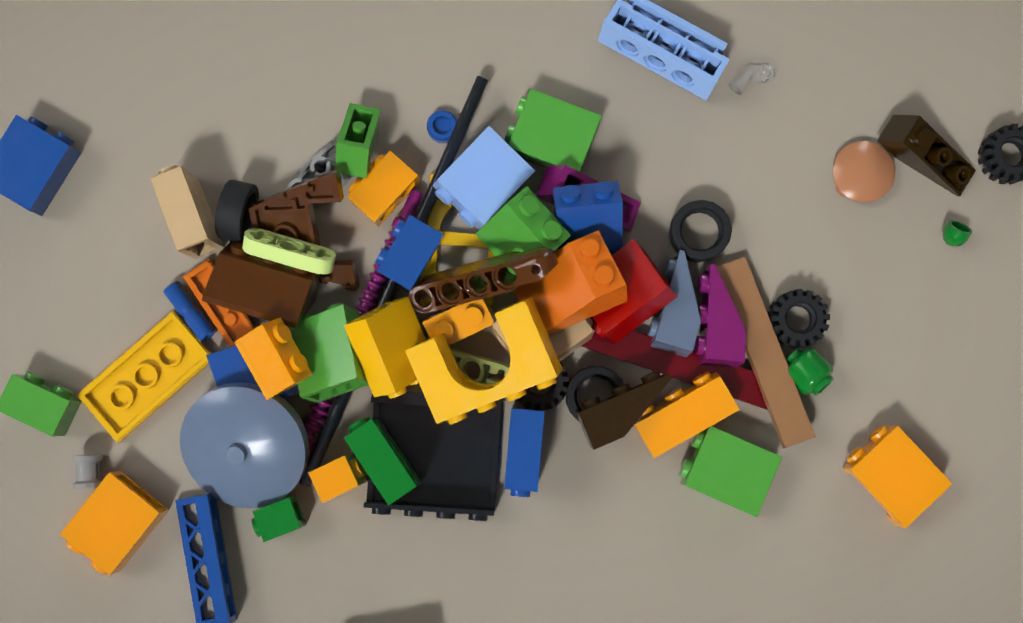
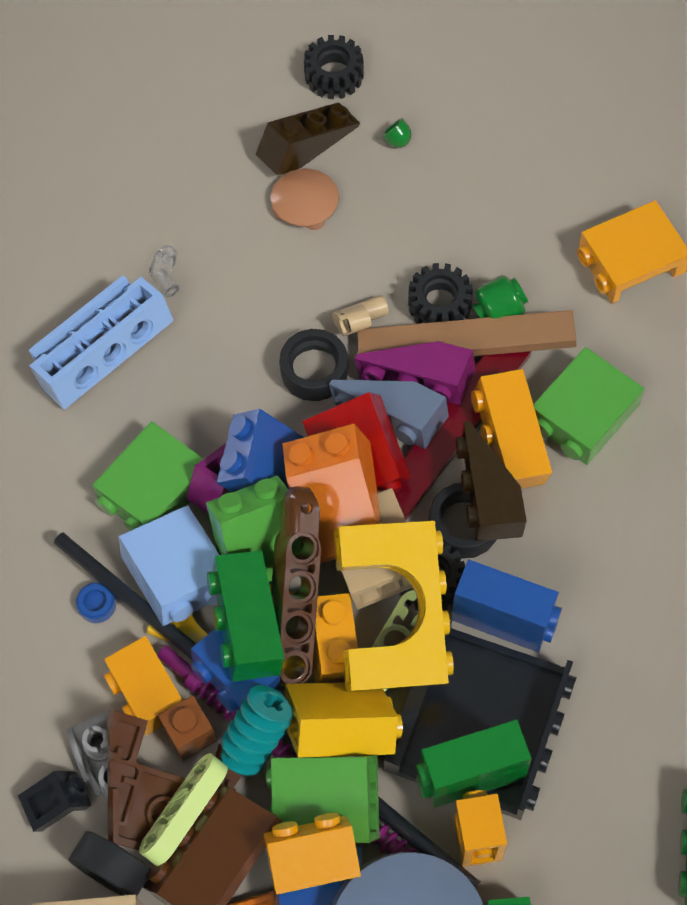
camera: 75 degrees left, 20 degrees down
(279, 153) = (54, 799): none -> black bracket
(357, 140) = (78, 690): bright green brick -> none
(358, 232) = (188, 728): none -> dark orange brick
(361, 286) = (255, 730): none -> teal piece
(444, 248) = (245, 616): none -> green brick
(754, 250) = (360, 315): none -> tan piece

